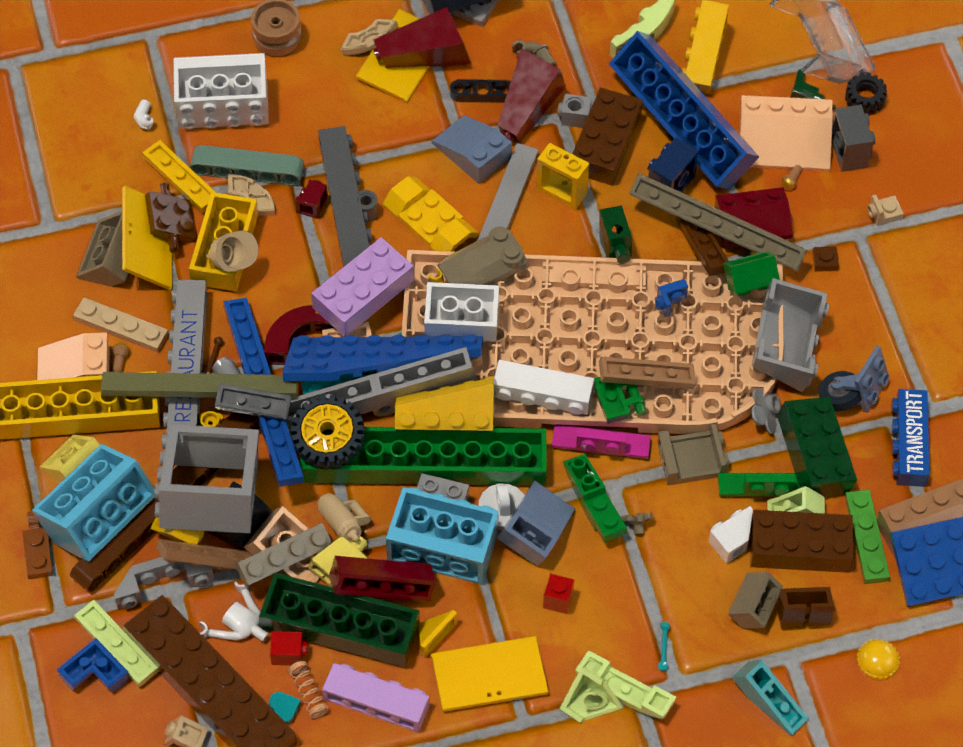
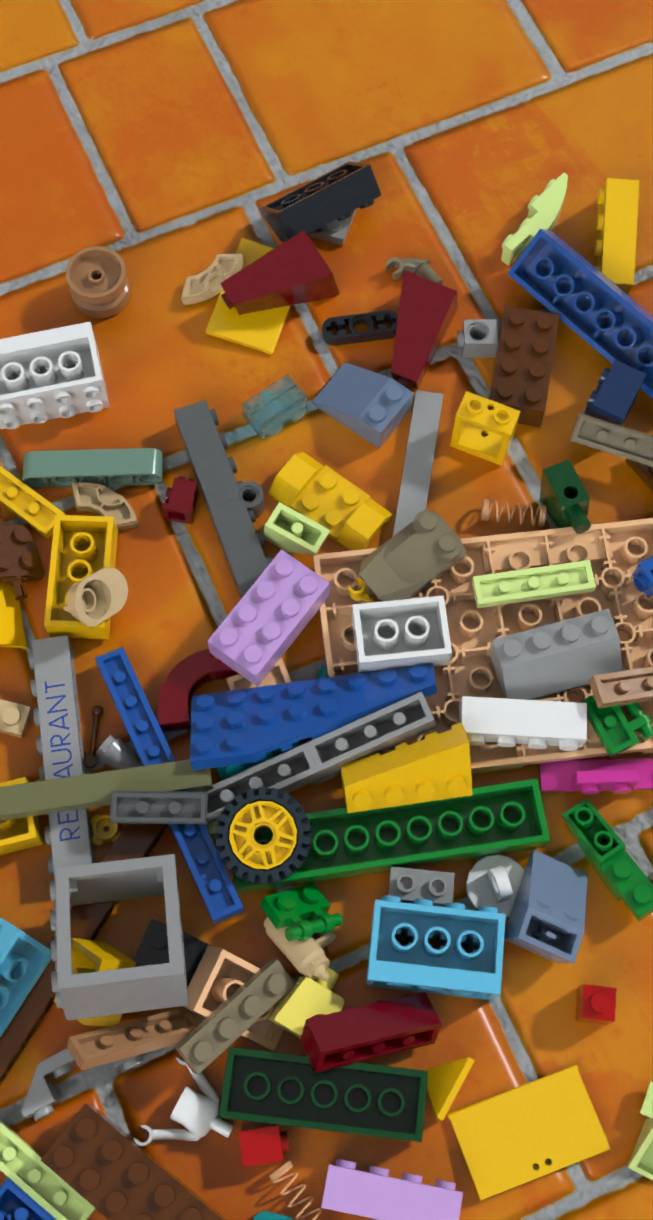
camera: 10 degrees left, 10 degrees up
(346, 495) = (295, 907): none -> green plate
(395, 230) = (294, 531): none -> yellowish green slope
(400, 140) = (275, 407): none -> clear light blue brick
(574, 292) = (533, 584): none -> yellowish green plate
(579, 343) = (556, 656): none -> light grey slope
(596, 251) = (485, 512): none -> light nougat piece

